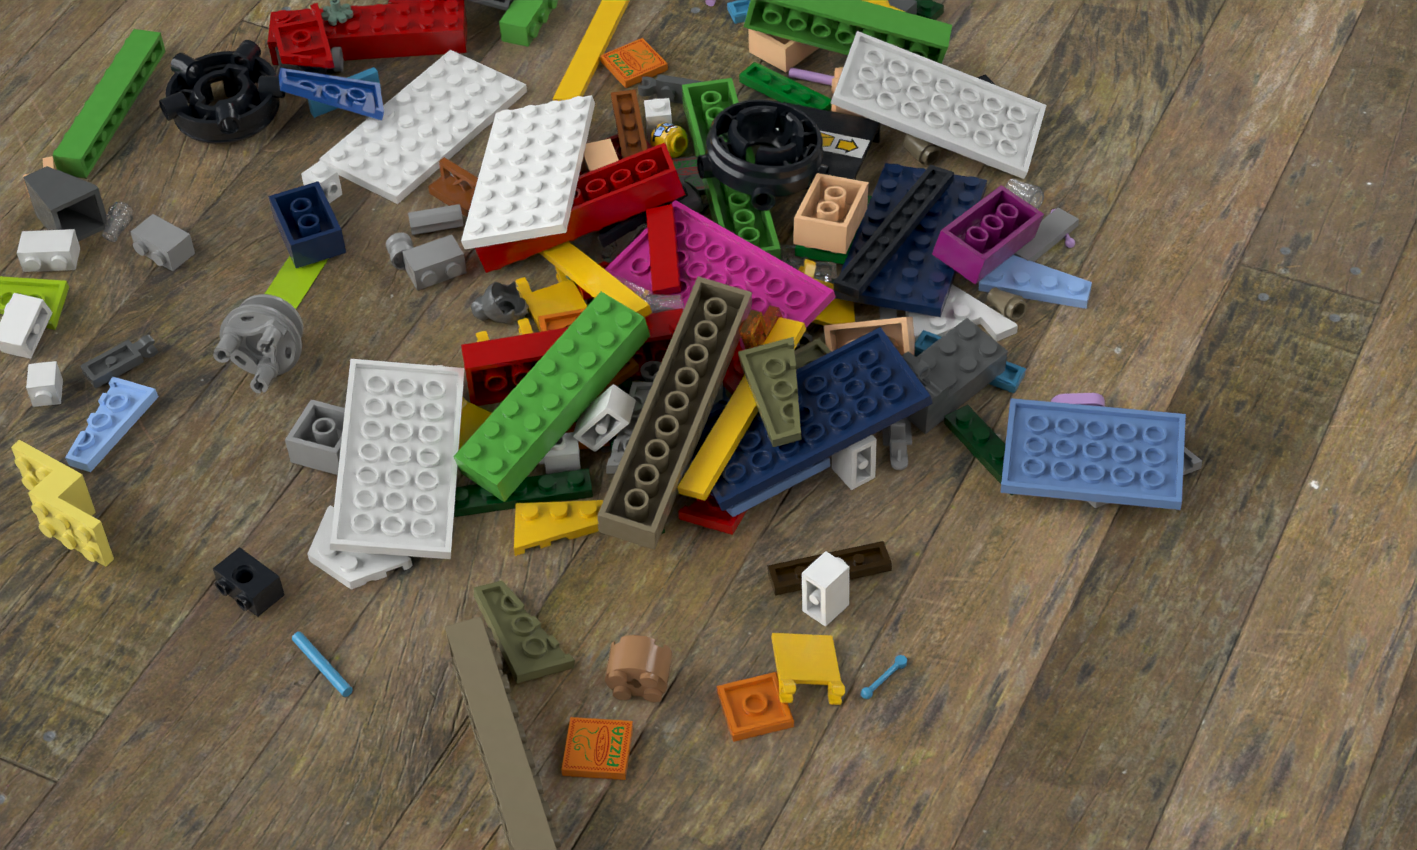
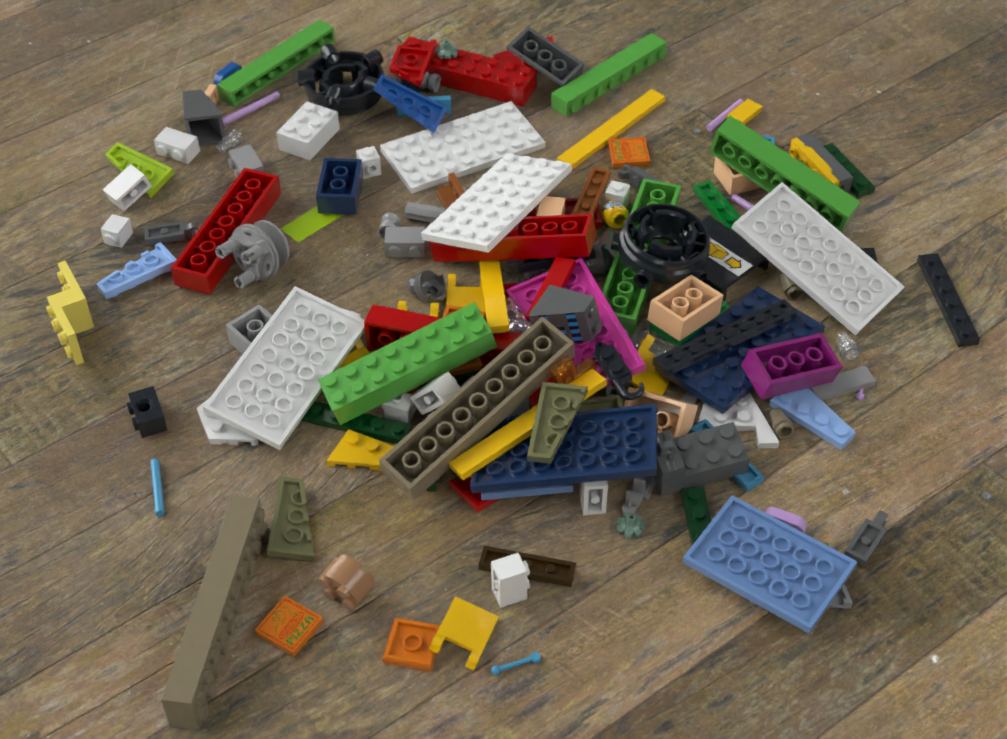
camera: 25 degrees right, 0 degrees up
(52, 138) = (227, 71): none -> blue beam
(117, 166) = (252, 107): none -> lavender bar
(195, 310) = (243, 203): none -> red brick
(214, 172) = (308, 130): none -> white brick
(713, 257) = (569, 312): none -> dark grey slope
(804, 308) = (615, 370): none -> black plate
(912, 477) = (630, 525): none -> sand green plant
(1098, 103) = (948, 300): none -> black plate
(1175, 387) = (867, 539): none -> dark grey plate

